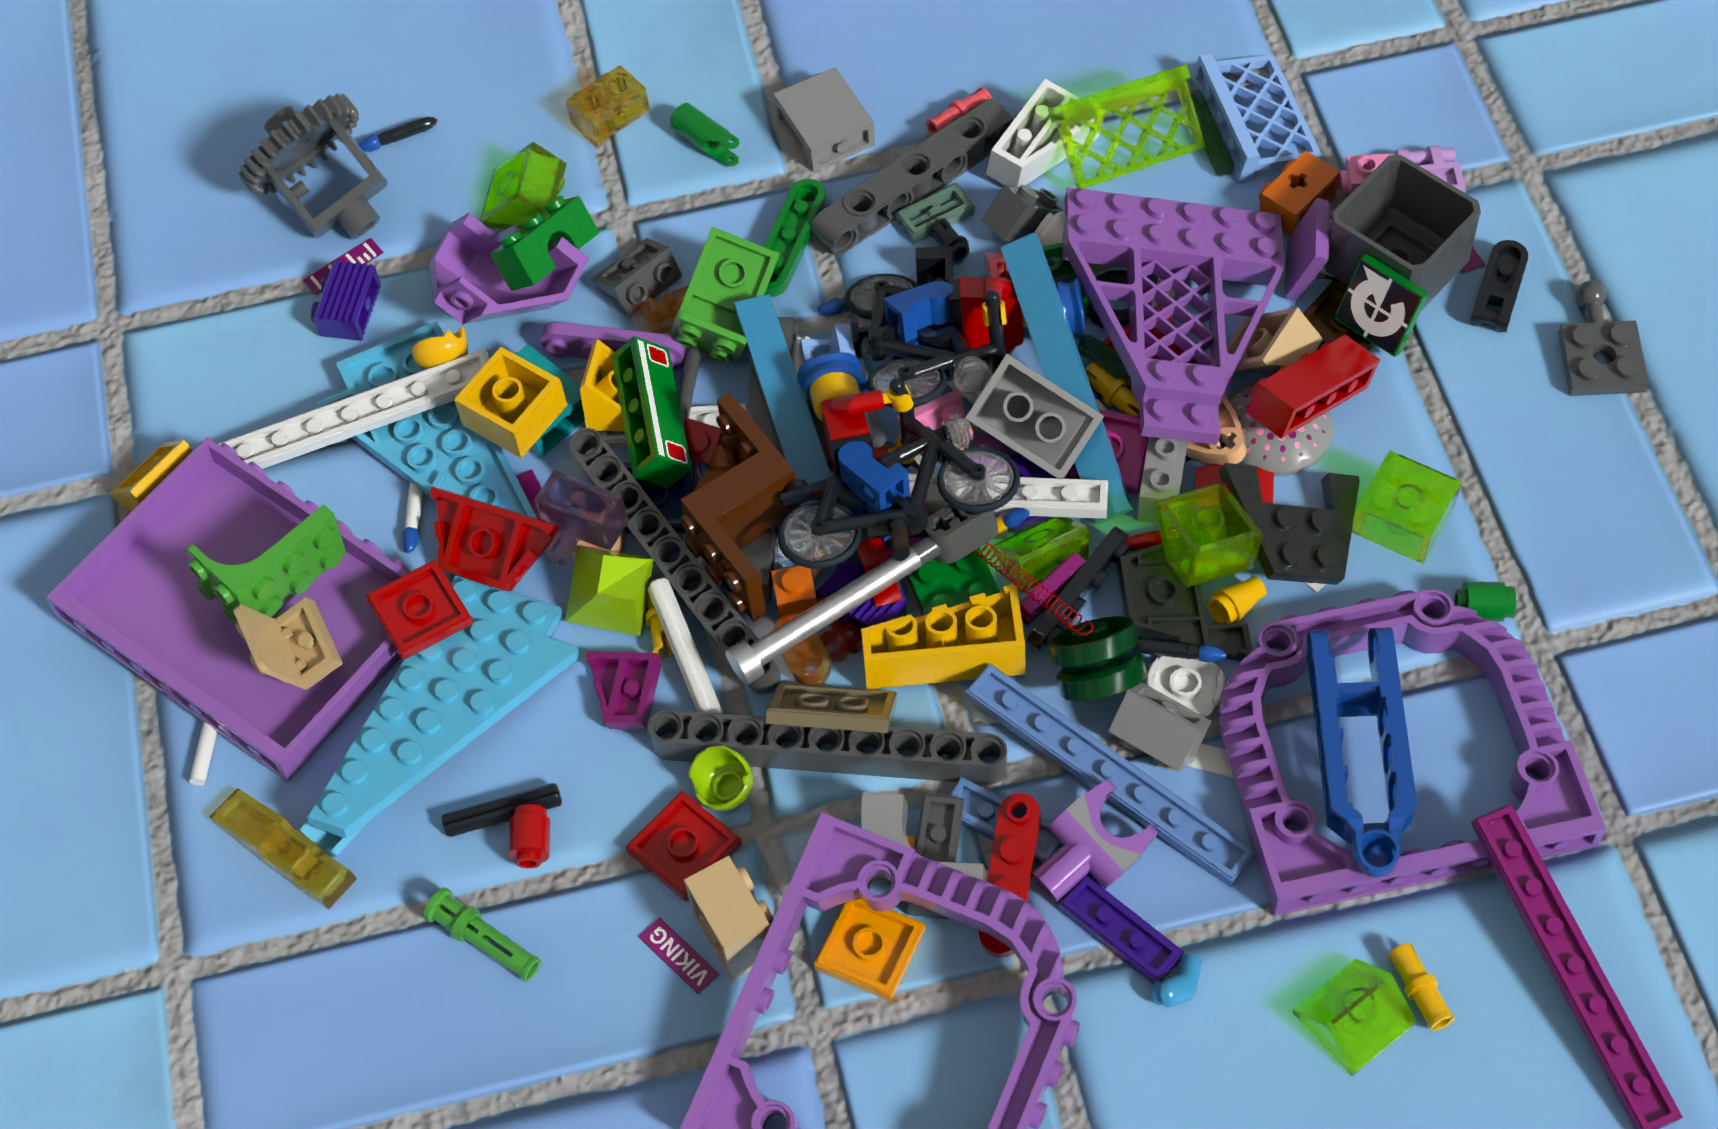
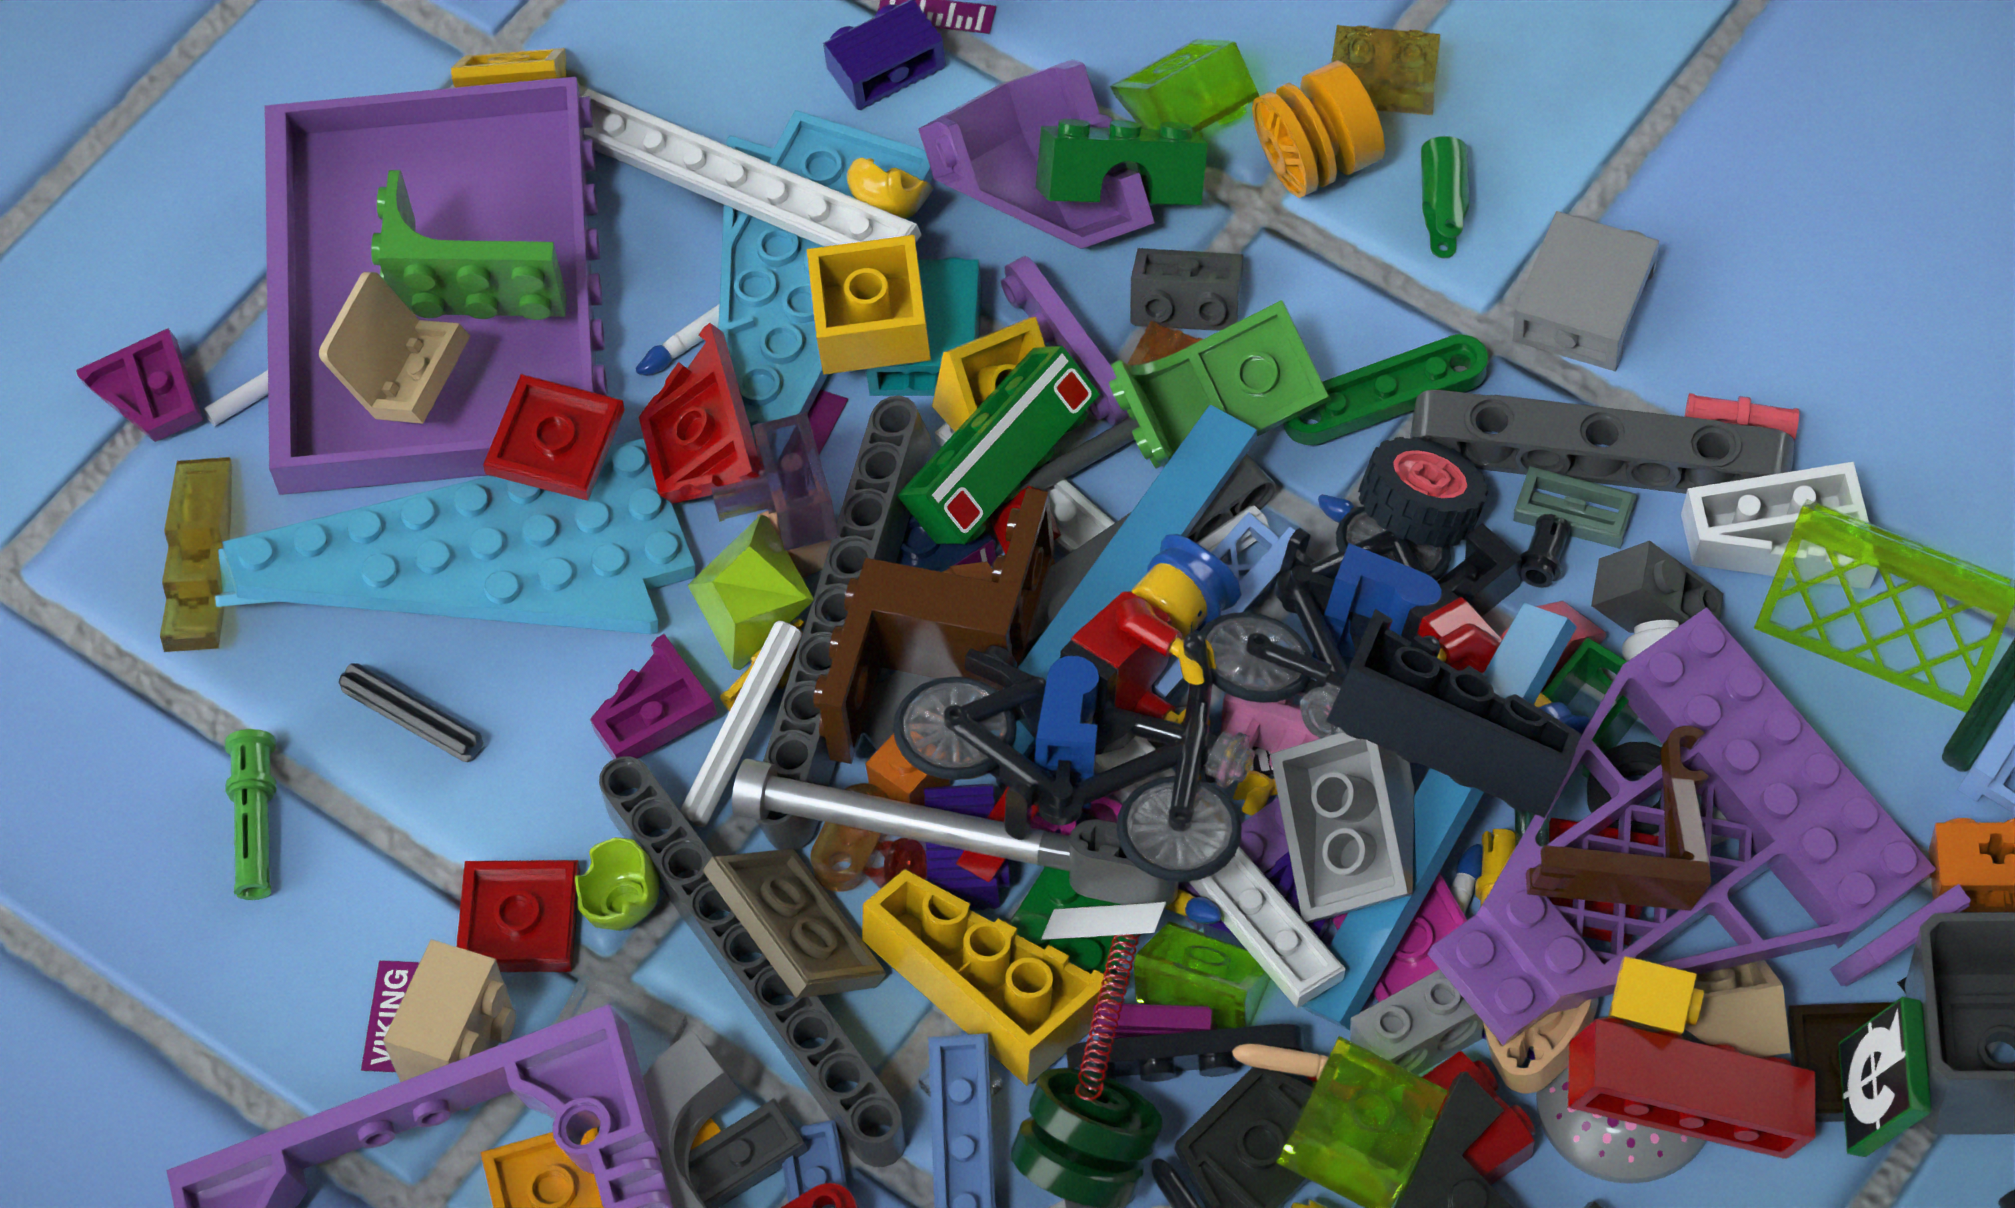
camera: 50 degrees right, 0 degrees up
(142, 798) = (146, 385): none -> magenta wing
(529, 836) = (396, 762): red brick -> none
(617, 150) = (1318, 128): none -> light orange wheel
(870, 259) = (1423, 491): none -> black wheel
(978, 563) = (1104, 920): none -> white sticker
(1043, 316) = (1452, 720): none -> black wedge
(1134, 541) = (1280, 1059): none -> light nougat piece
(1201, 291) = (1640, 879): none -> reddish brown hinge
(1261, 356) = (1655, 996): none -> yellow brick

